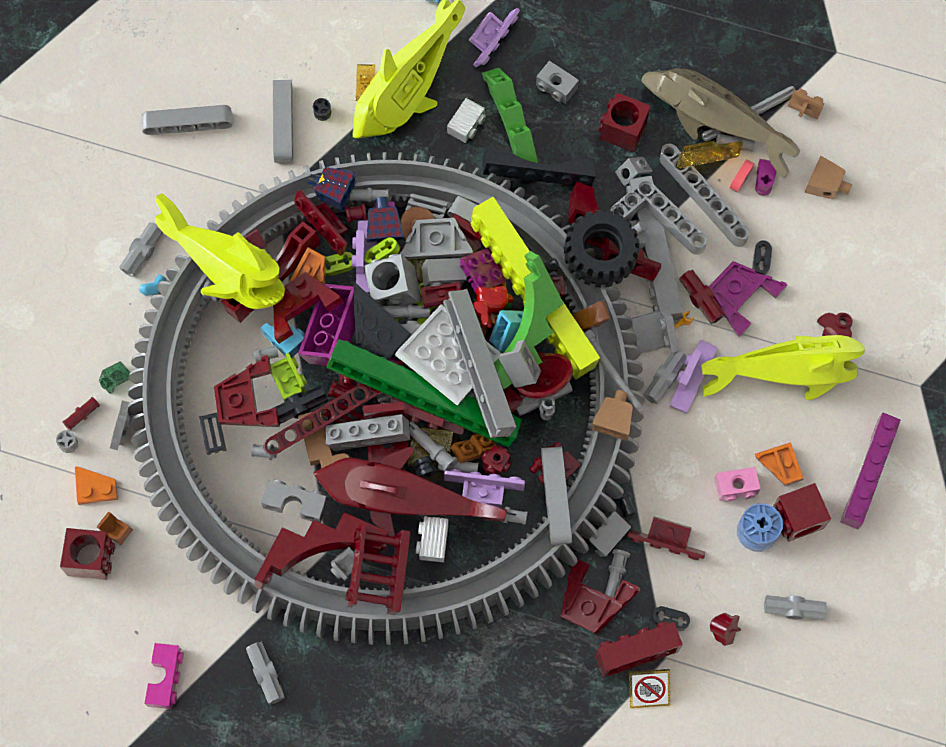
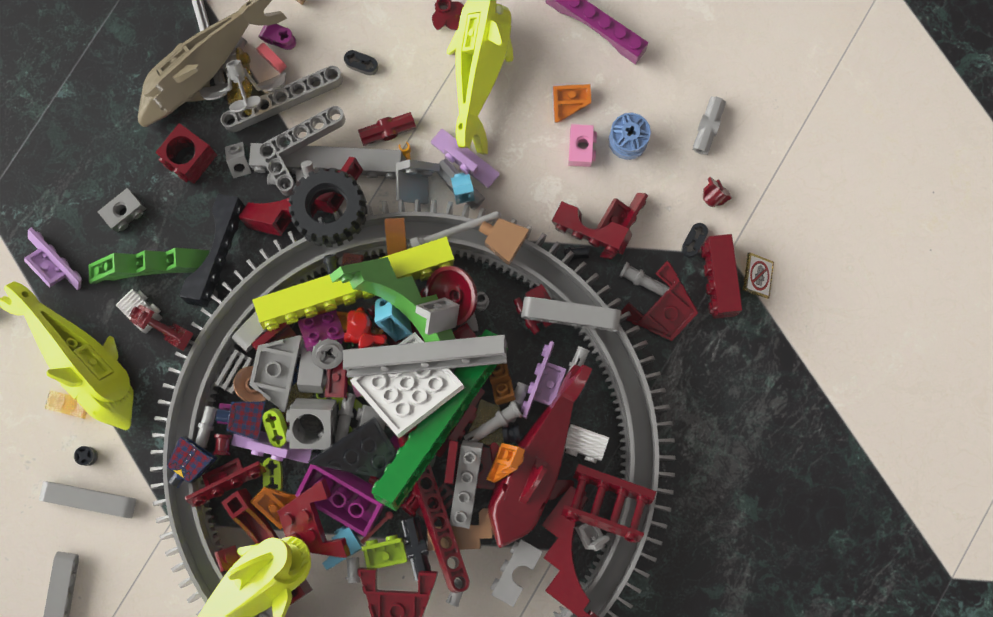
camera: 70 degrees left, 10 degrees up
(323, 375) = (389, 515): none -> coral hinge
(397, 460) = (505, 462): none -> orange wing
(450, 149) = (173, 334): none -> dark red fence
(457, 269) = (329, 361): none -> light grey gear
(496, 467) = (521, 371): dark red brick -> none
(610, 534) = (607, 274): light grey panel -> none
(650, 529) = (612, 237): none -> dark red arch
(658, 375) = (462, 188): none -> medium azure arch
(710, 143) = (236, 73): none -> light grey plant
(736, 286) = (386, 96): magenta wing -> none
(802, 512) = (624, 93): dark red brick -> none

